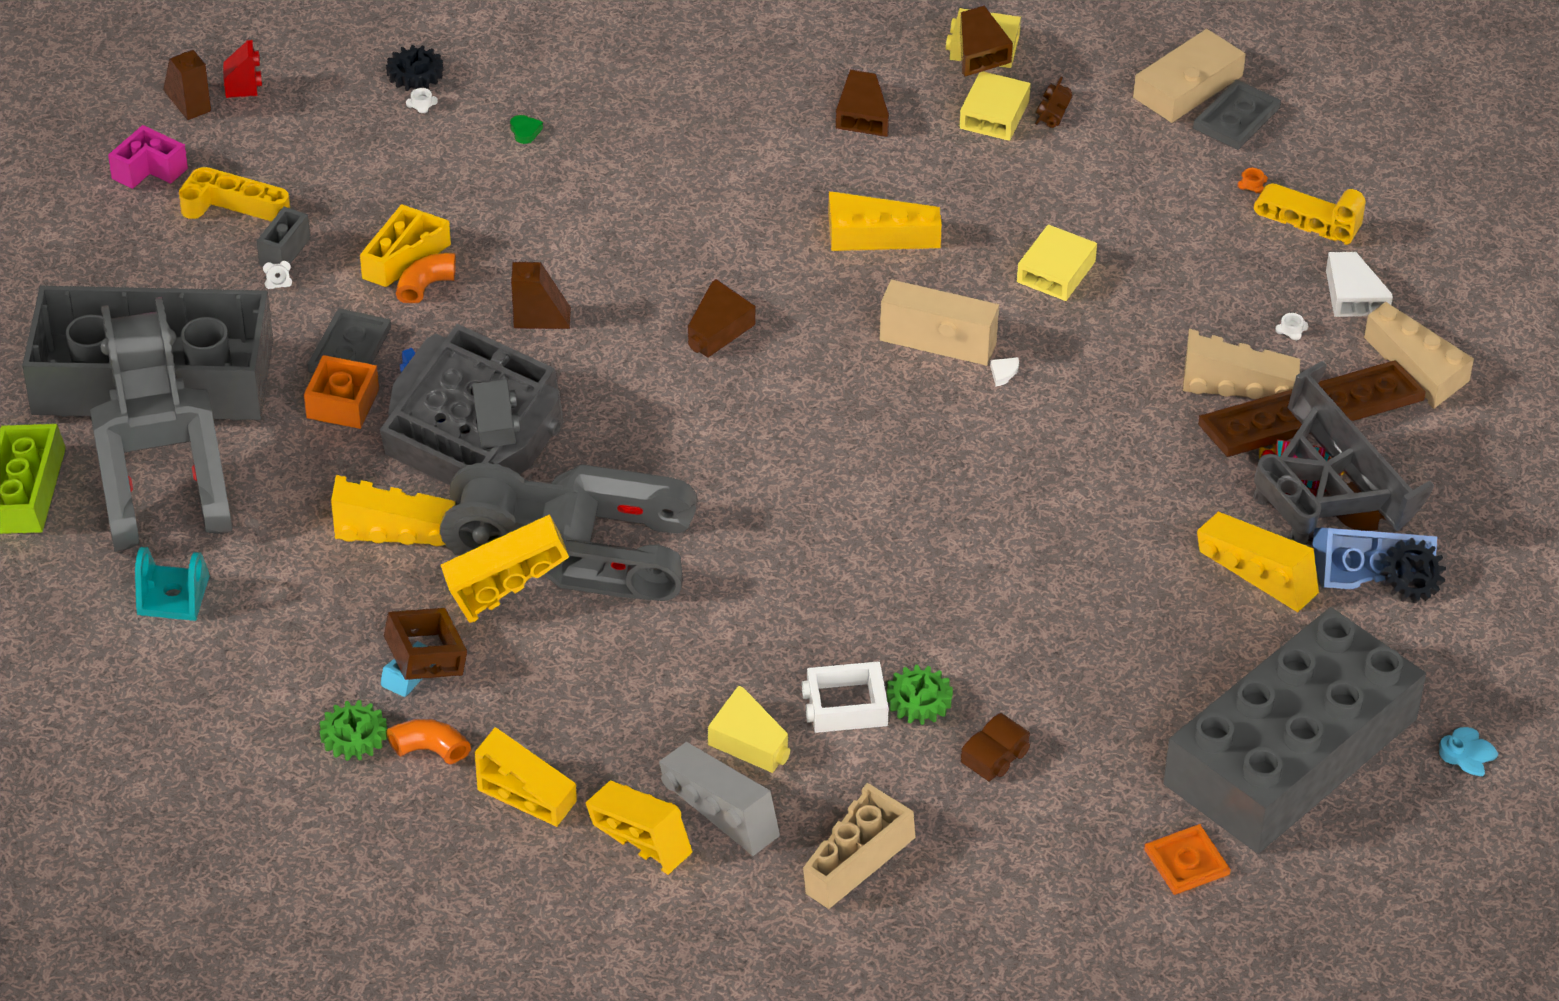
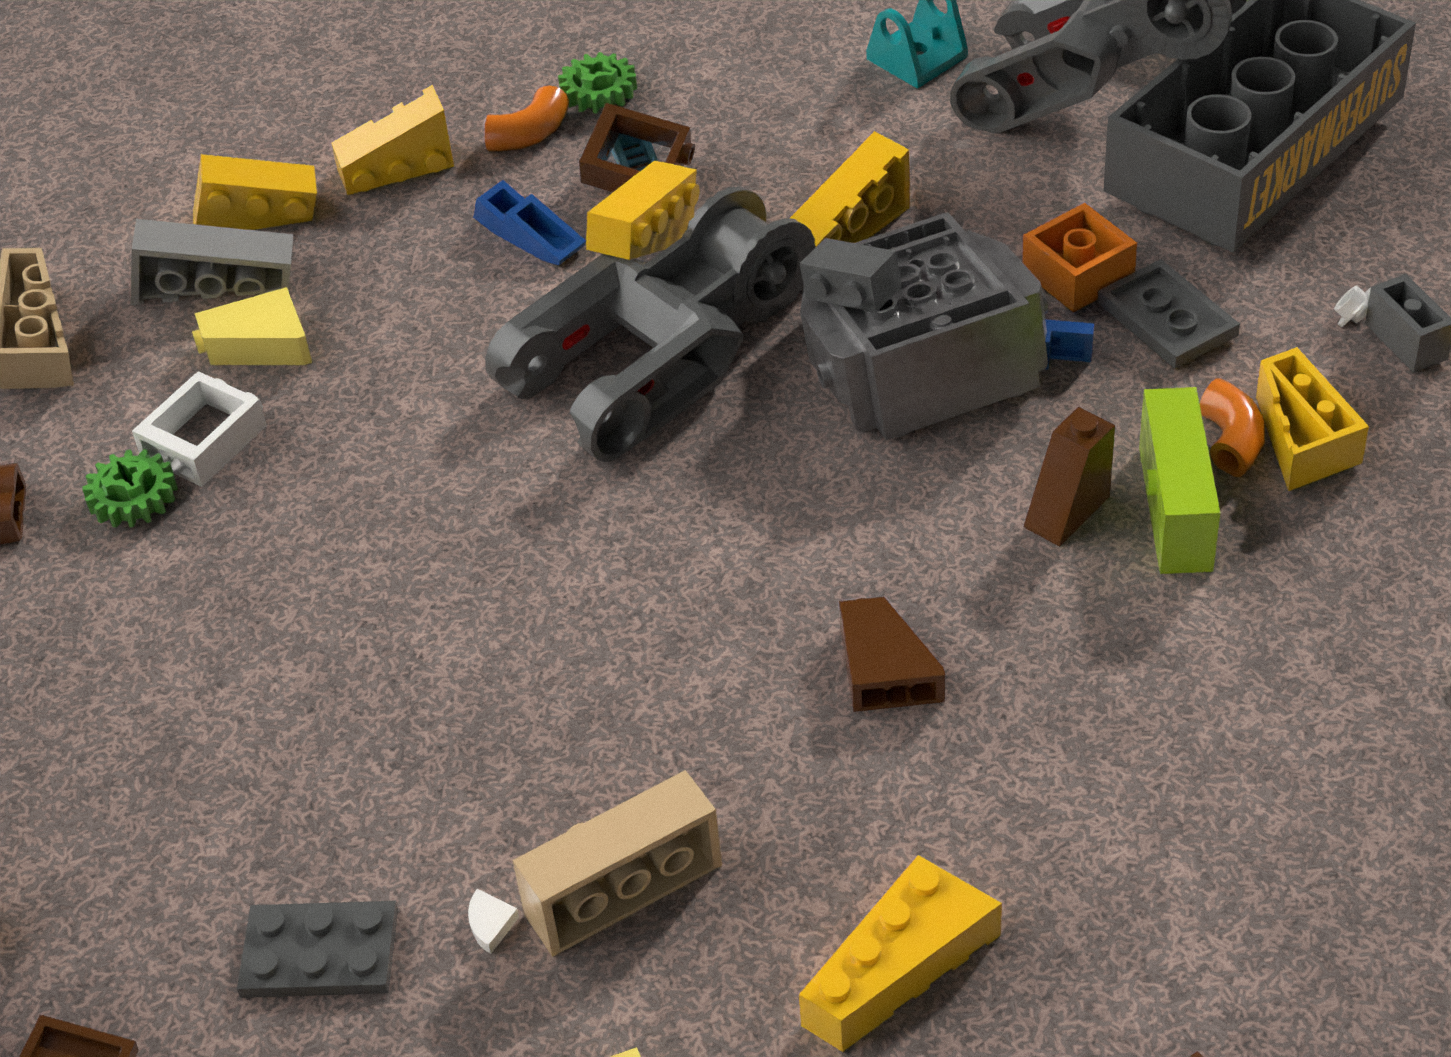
camera: 135 degrees right, 0 degrees up
(485, 267) = (1179, 481): none -> lime brick
(529, 672) = (527, 224): none -> blue slope
(1082, 416) = (318, 949): none -> dark grey plate

